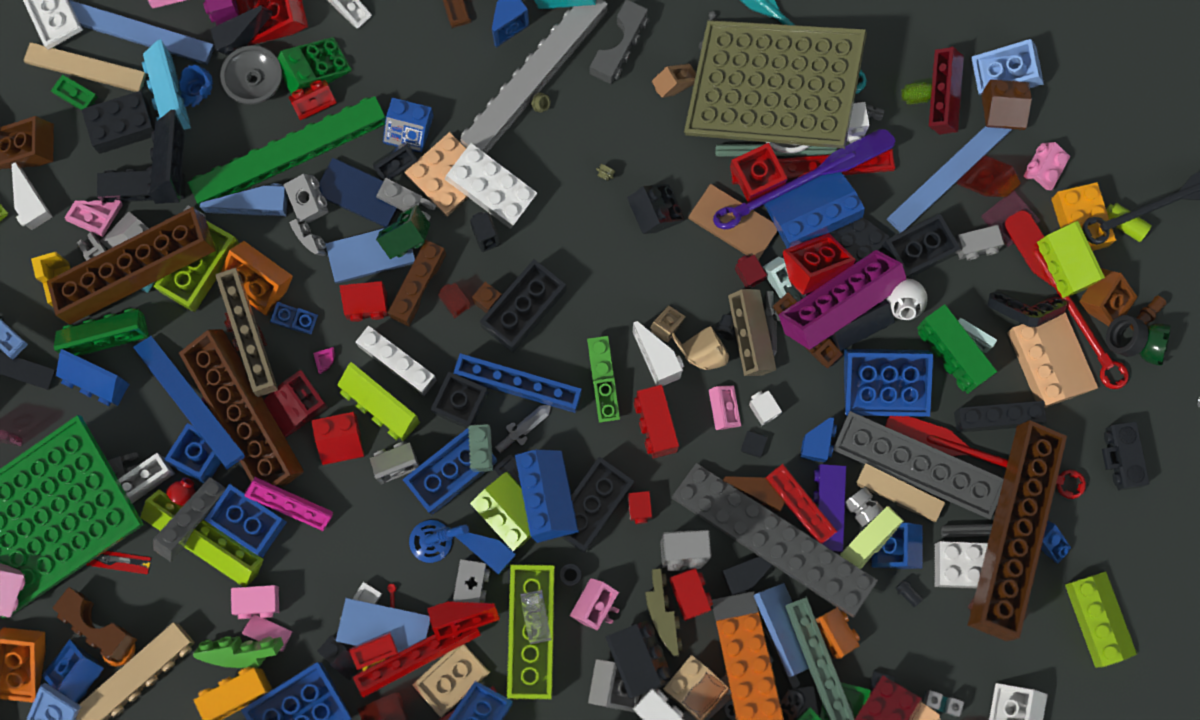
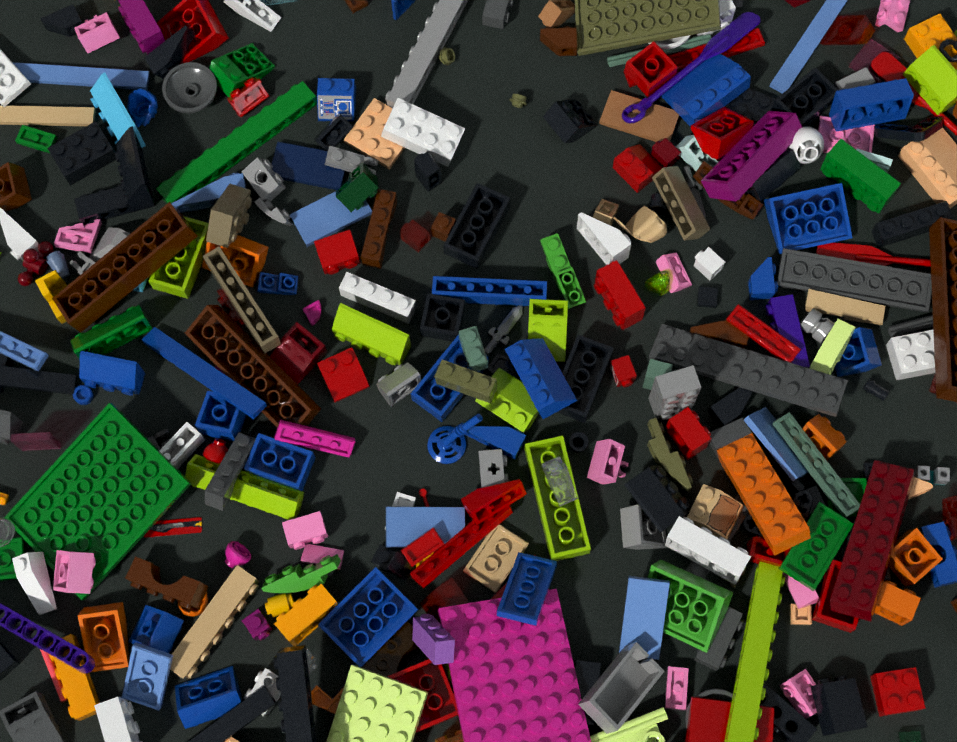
camera: 10 degrees left, 5 degrees down
(40, 234) = (35, 262): none -> dark red piece
(57, 393) = (83, 395): none -> blue tile
(65, 241) = (57, 262): none -> sand blue cone
(177, 609) = (236, 554): none -> dark pink brick
(180, 691) = (257, 625): none -> magenta bracket
(208, 675) = (279, 604): none -> yellow brick
(256, 234) = (229, 215): none -> dark tan brick
(463, 482) = (466, 381): none -> olive brick
(572, 434) = (549, 322): none -> lime slope
(669, 114) = (560, 40): none -> reddish brown slope
(674, 521) = (655, 369): none -> sand green brick
(704, 416) = (659, 283): none -> clear neon green brick
(716, 278) = (636, 167): none -> red slope
(961, 297) = (857, 137): none -> bright pink tile
(990, 270) = (871, 104): none -> blue brick

